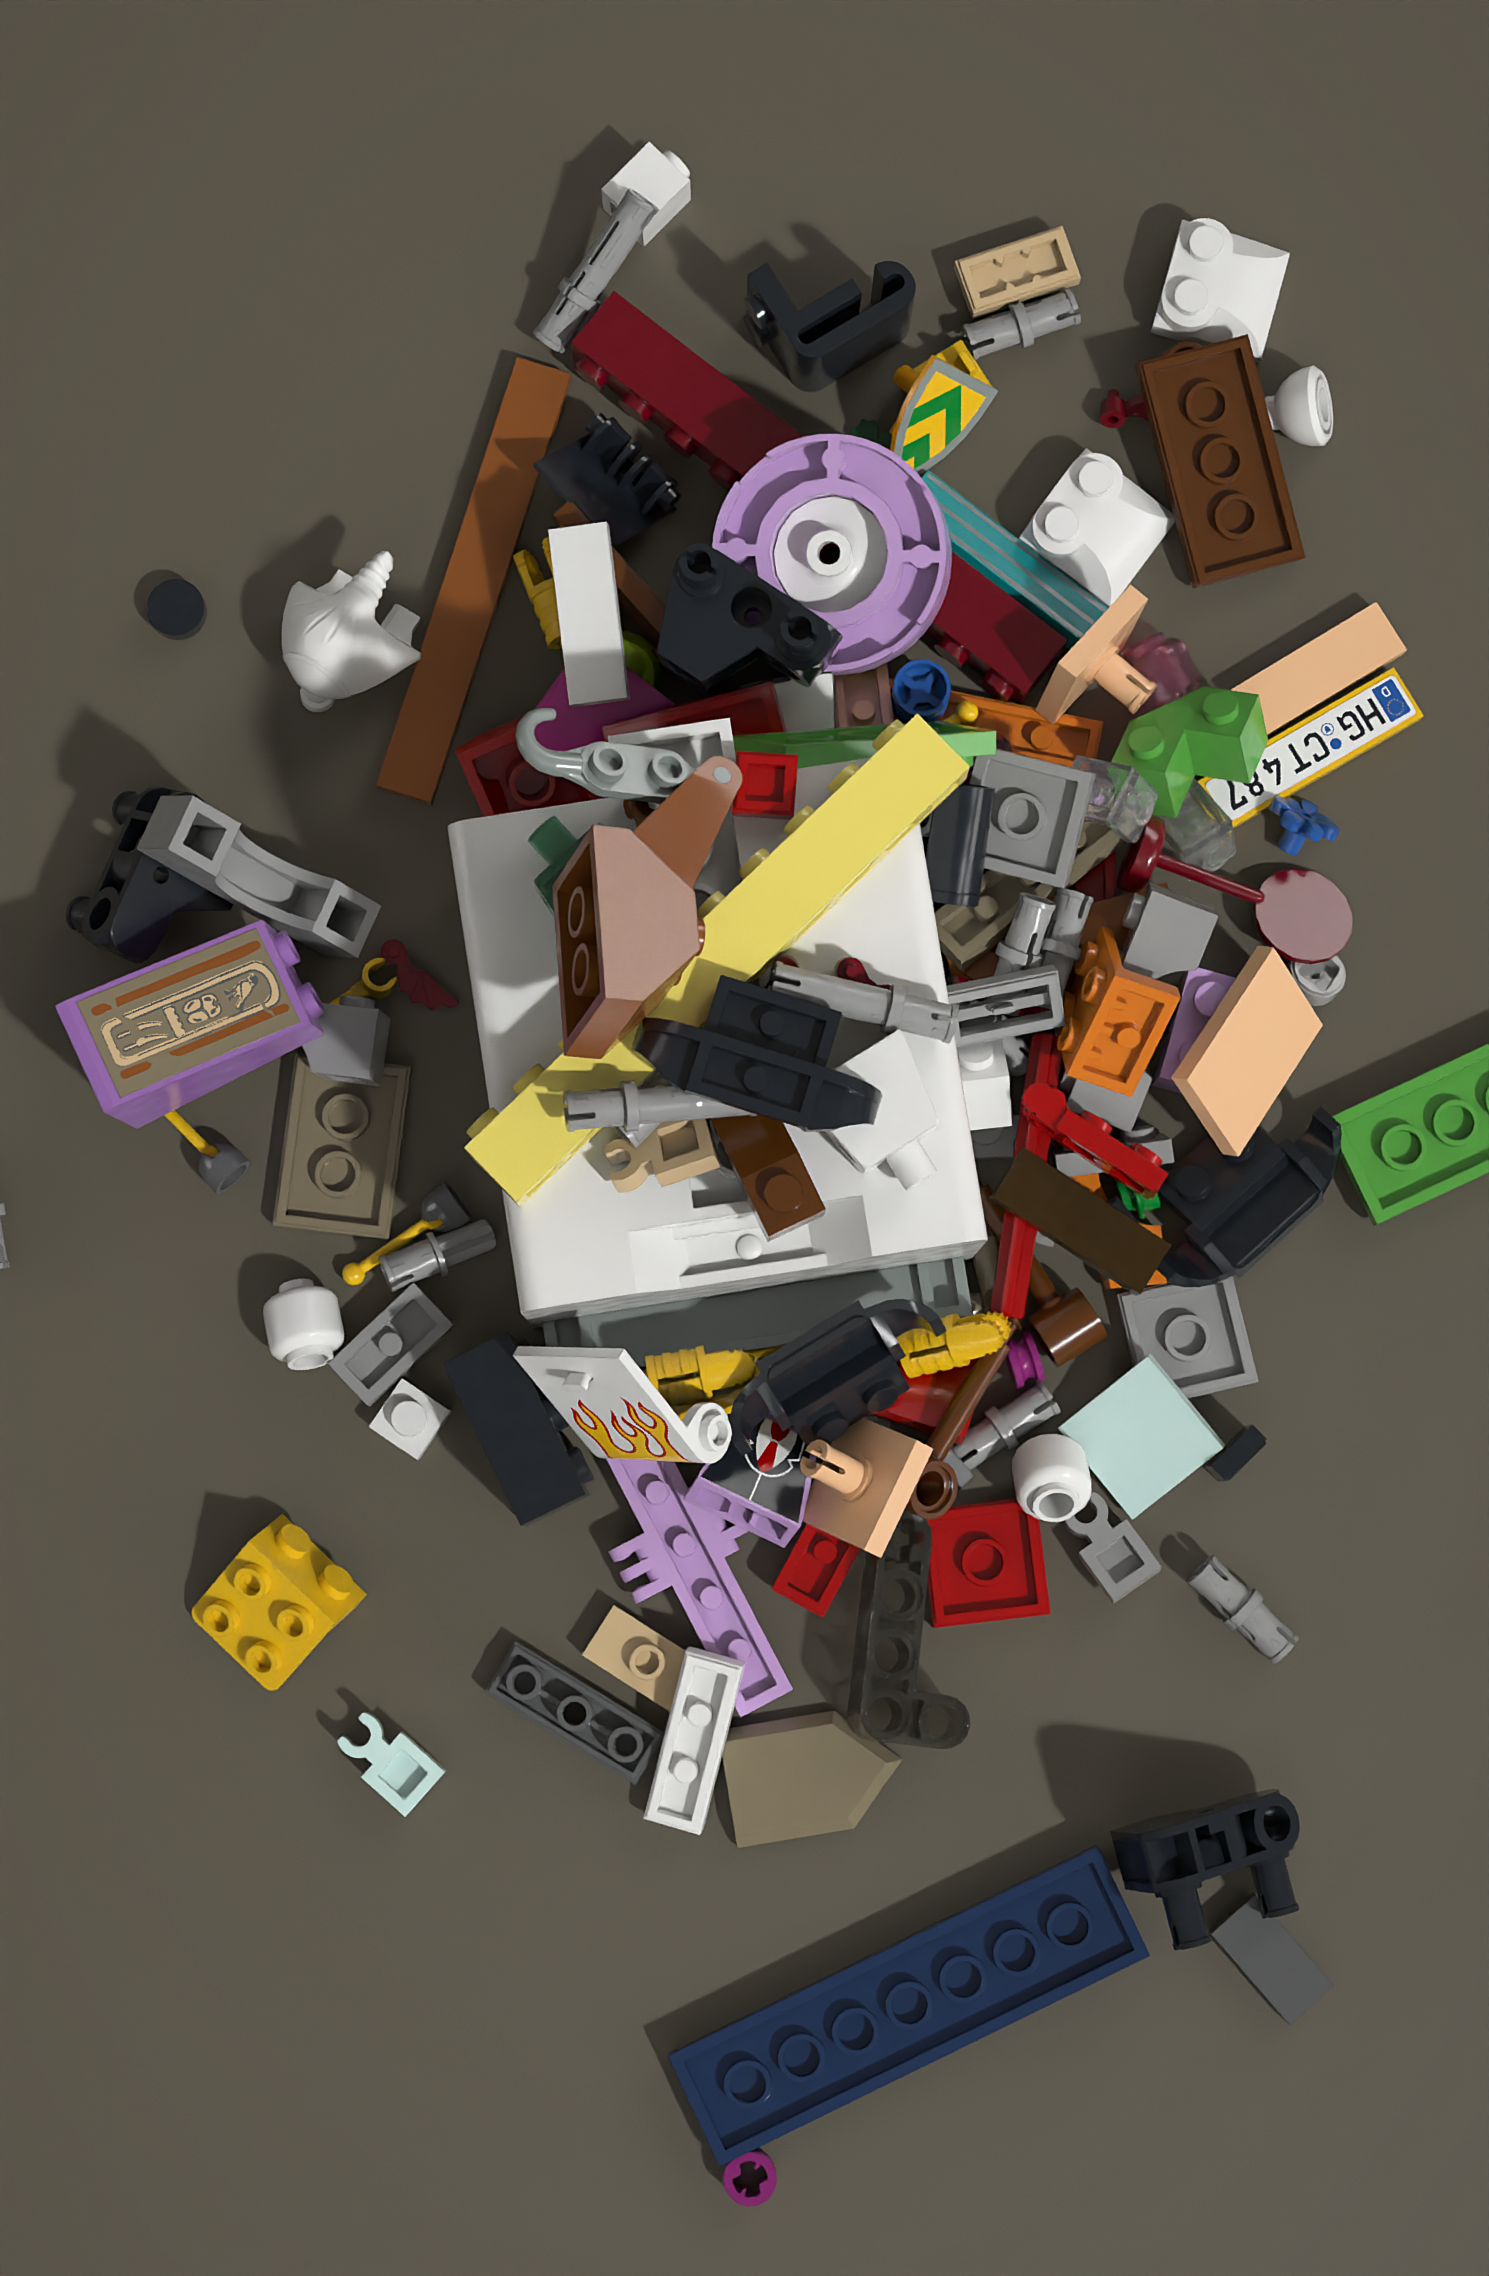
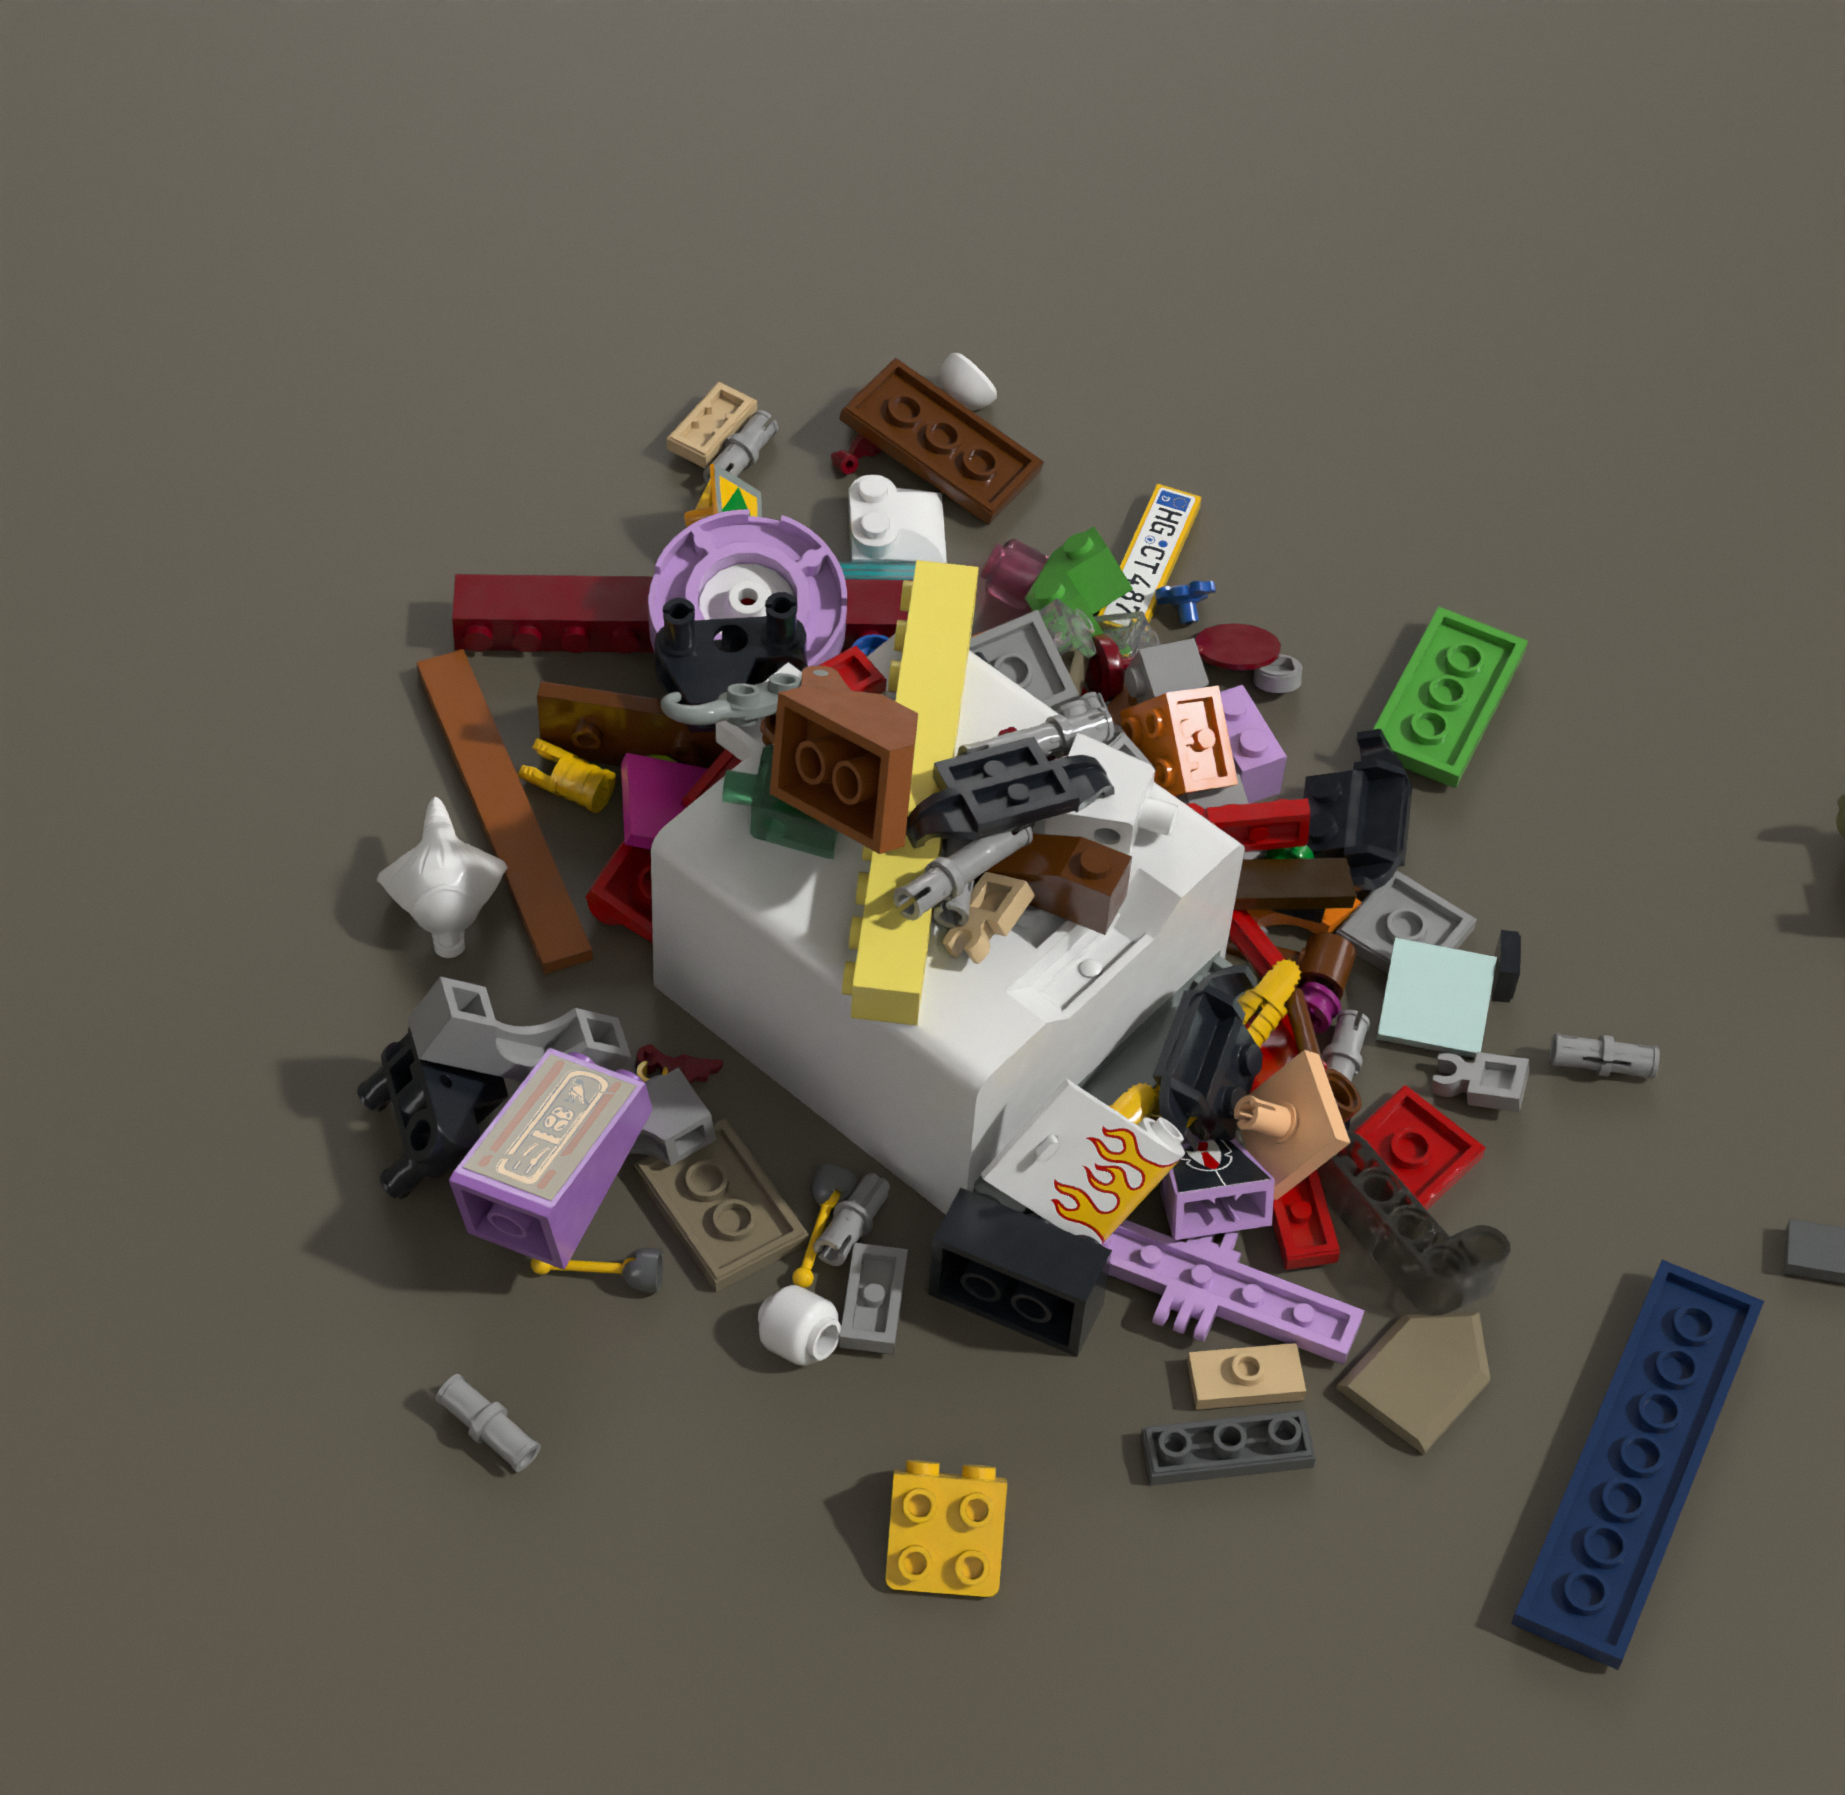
camera: 40 degrees left, 30 degrees down
(176, 609) = (299, 954): black tile -> none
(398, 1769) = (1139, 1571): light aqua plate -> none
(410, 1419) = (930, 1341): white plate -> none
(584, 287) = (430, 589): light grey pin -> none
(589, 614) = (616, 732): white tile -> none
(606, 482) = (526, 679): black hinge -> none
(656, 177) = (424, 522): white brick -> none
(694, 1740) = (1329, 1393): white tile -> none
(766, 2183) = (1659, 1647): magenta bush -> none
(829, 334) = (621, 520): black piece -> none
(1051, 1477) = (1404, 1056): white head -> none
(1097, 660) = (991, 574): light nougat tile -> none
(1184, 1848) = (1727, 1200): black piece -> none
(1219, 287) = (840, 358): white slope -> none
(1247, 1051) = (1282, 722): light nougat tile -> none
(1324, 667) = (1119, 503): light nougat tile -> none

